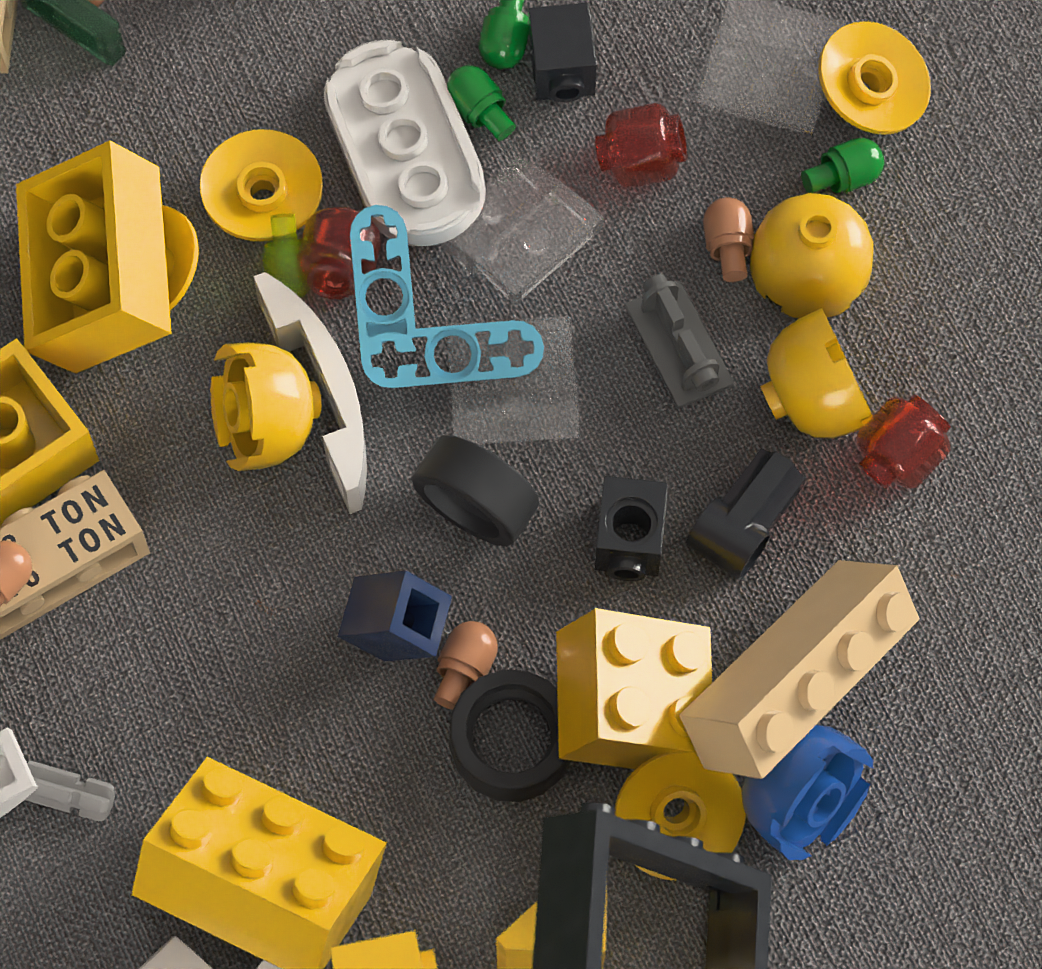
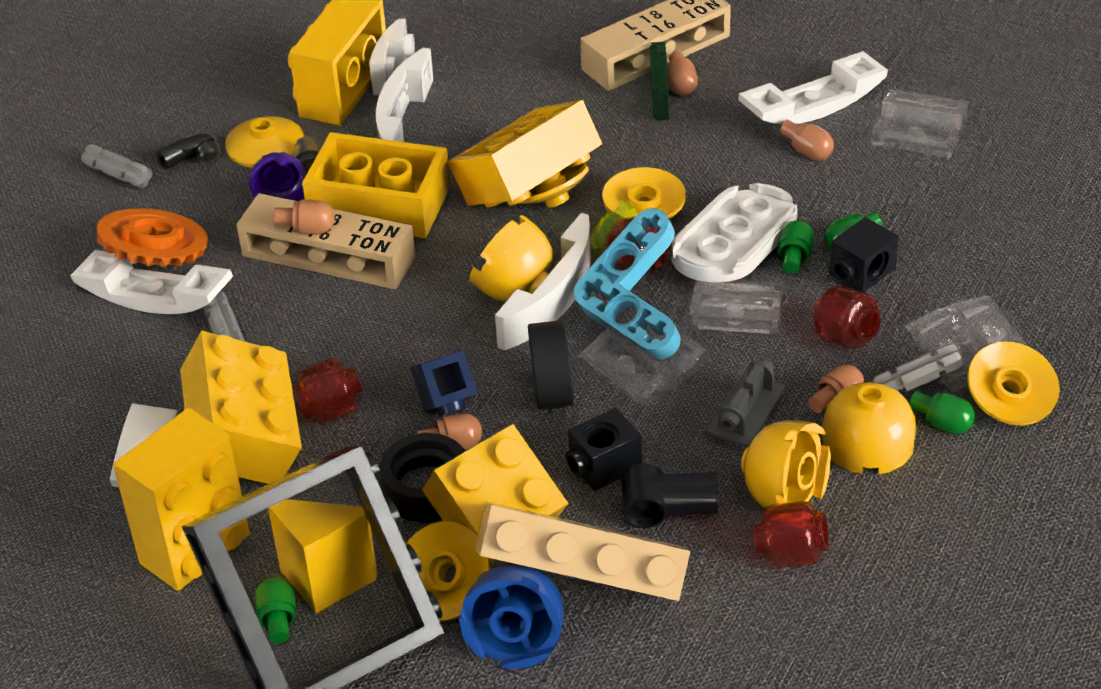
camera: 55 degrees right, 25 degrees down
(287, 747) = (327, 391): none -> clear red head
(780, 147) = (922, 369): none -> light grey axle

